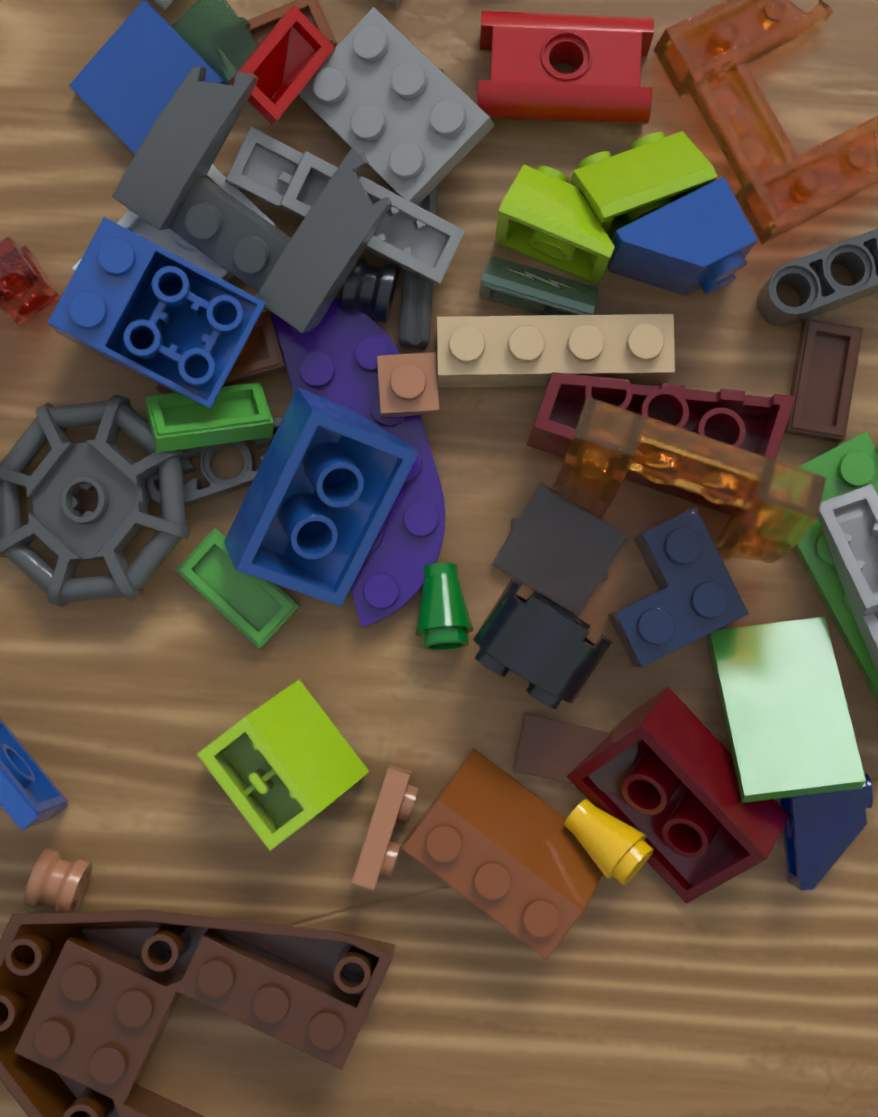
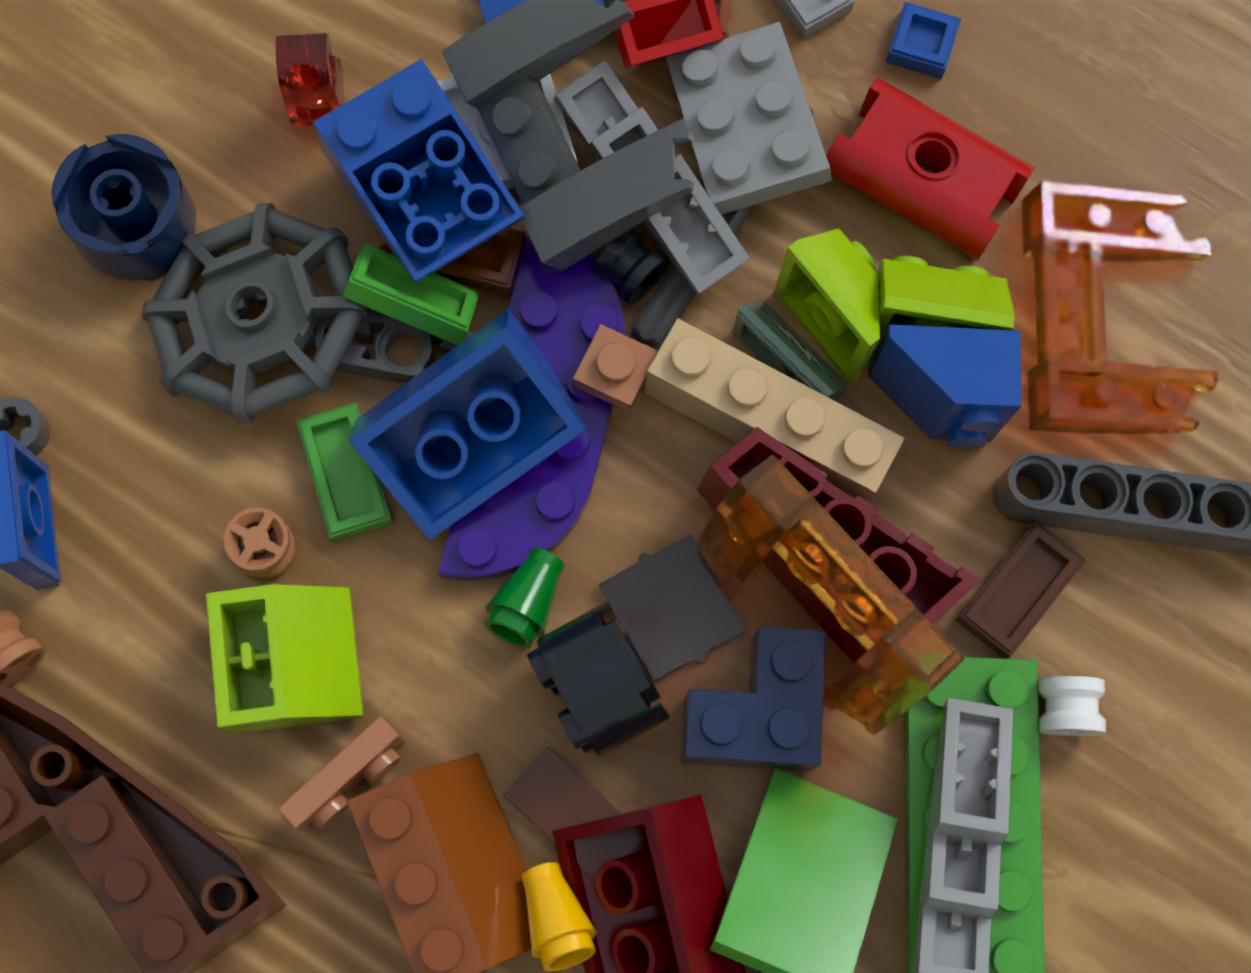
camera: 20 degrees right, 10 degrees down
(197, 685) = (249, 534): none -> nougat wheel

